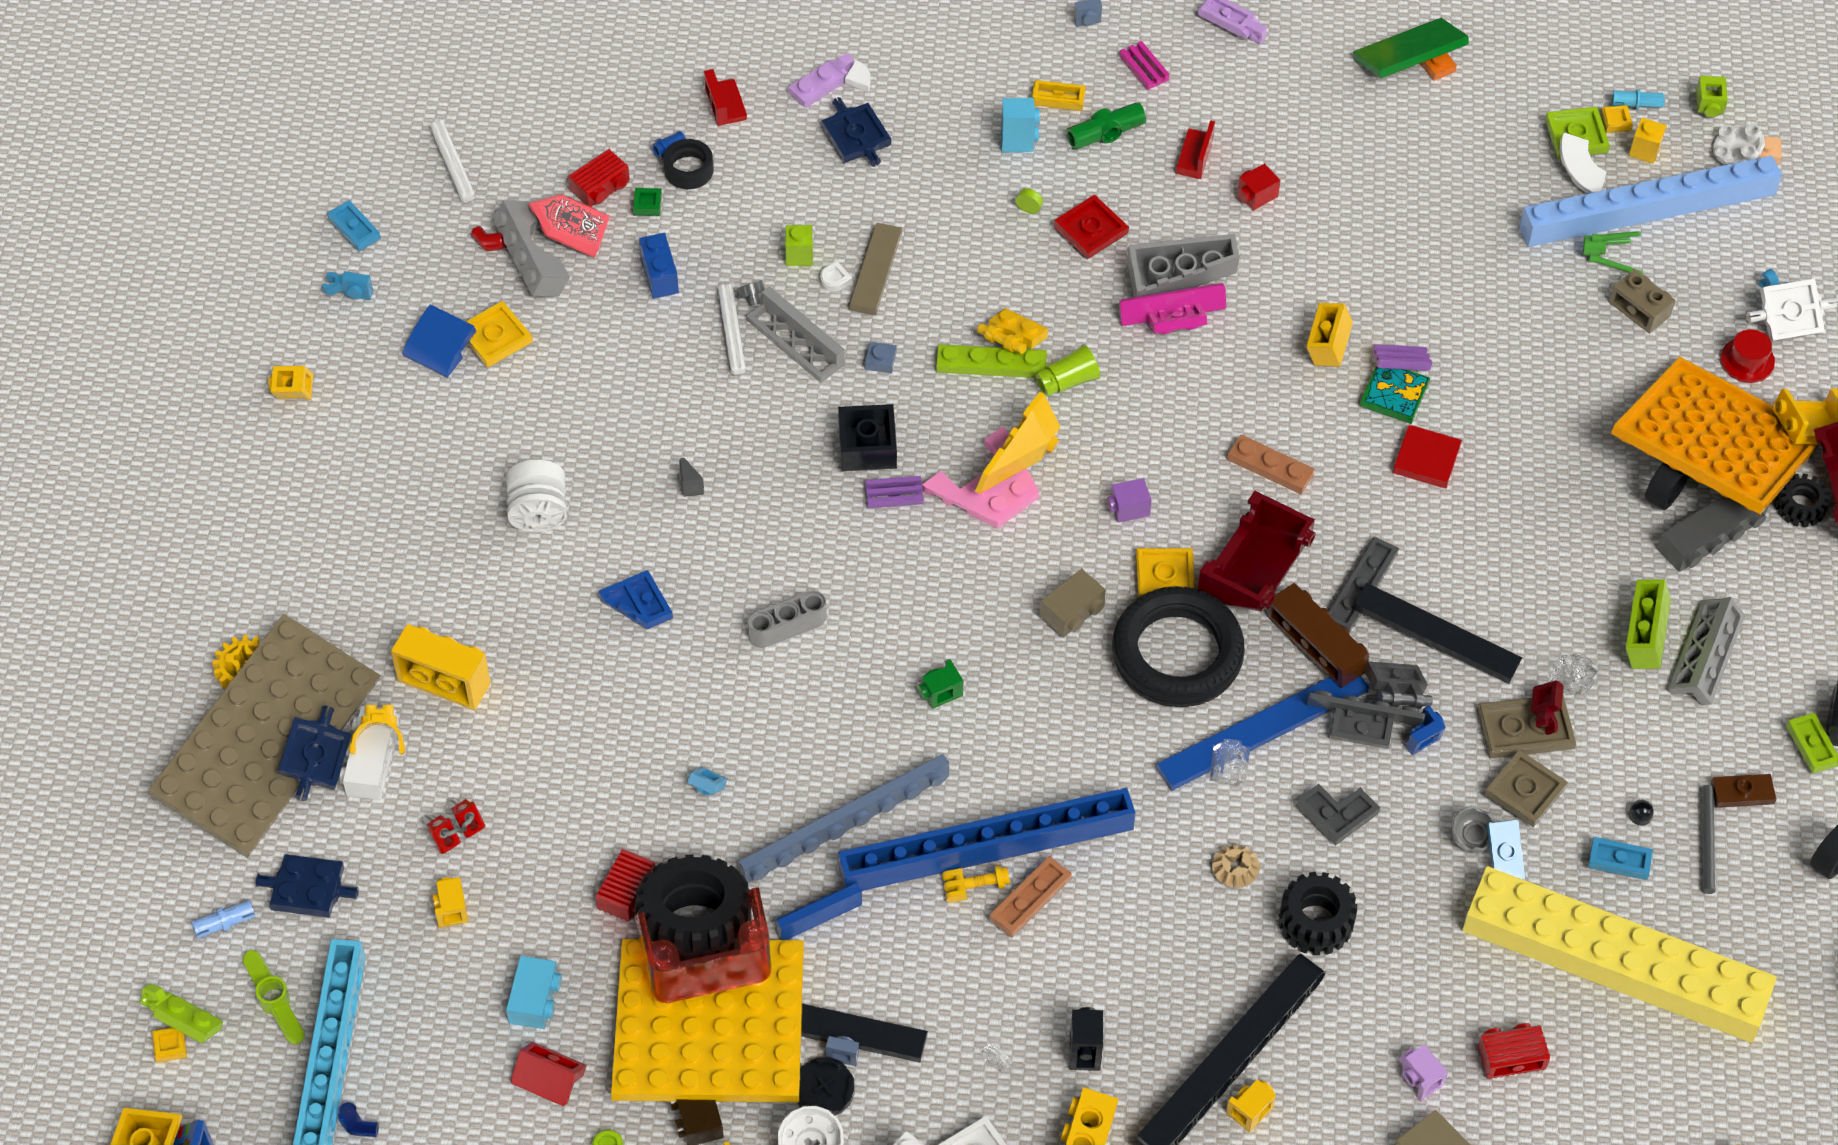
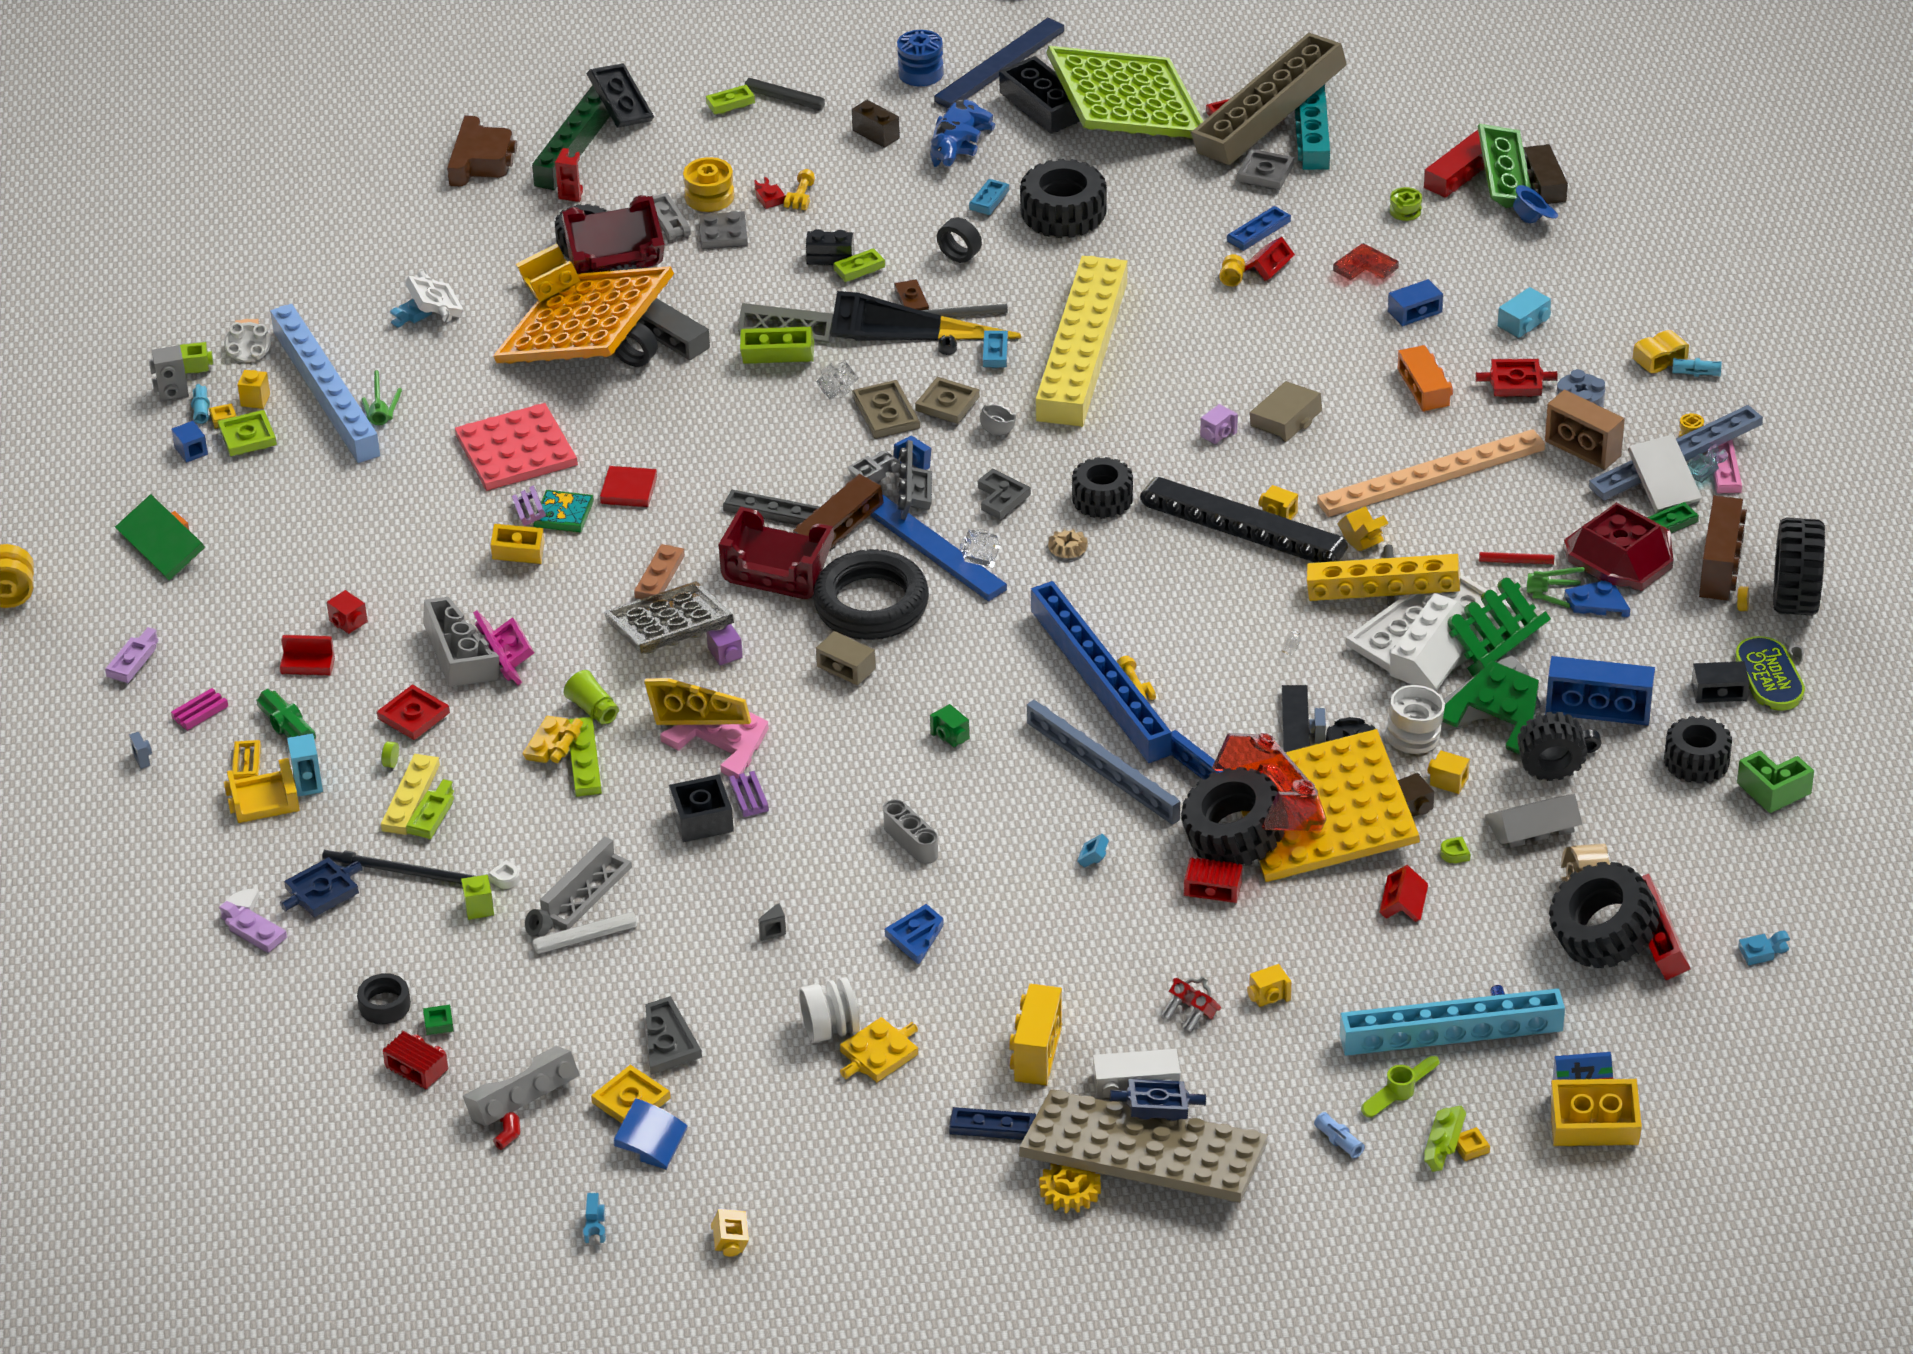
camera: 100 degrees left, 15 degrees down
(307, 886) = (1284, 1089): dark blue plate -> none
(354, 225) = (512, 1237): dark azure plate -> none
(360, 618) = (990, 1123): none -> dark blue tile
(374, 717) = (1117, 1058): yellow helmet -> none
(452, 161) = (407, 1183): white axle -> none
(489, 542) = (878, 1049): none -> yellow plate
(533, 992) = (1336, 916): medium azure brick -> none
(565, 375) = (669, 1036): none -> dark grey wing
(571, 222) = (480, 1062): coral tile -> none
(658, 265) = (522, 990): blue brick -> none
(661, 145) = (363, 1022): blue pin -> none
(724, 99) = (290, 994): red panel -> none
(876, 268) = (489, 848): dark tan tile -> none
(880, 357) = (595, 827): sand blue plate -> none
(891, 161) = (348, 857): none -> black bar
(940, 227) = (431, 811): none -> lime hinge
(974, 216) = (410, 793): none -> light yellow plate
(992, 86) = (262, 794): none -> yellow panel
(1030, 896) = (1138, 646): nougat plate -> none
(1086, 1039) = (1263, 586): black brick -> none
(1164, 568) = (792, 619): yellow tile -> none
(1173, 449) = (669, 617): none -> clear smoke plate
(1437, 633) = (812, 459): black tile -> none
(1506, 847) = (1011, 400): plate -> none
(1513, 1051) = (1183, 383): red brick -> none
(1518, 363) = (515, 446): none -> coral plate
(1545, 701) = (867, 388): dark red plate -> none
(1568, 82) = (189, 441): none -> blue brick
(1579, 165) = (289, 424): white tile -> none
(1642, 301) = (437, 379): dark tan brick -> none
(1675, 66) = (170, 373): none -> light grey brick
(1691, 738) = (875, 319): none -> black plate
(1748, 357) = (481, 322): red piece -> none

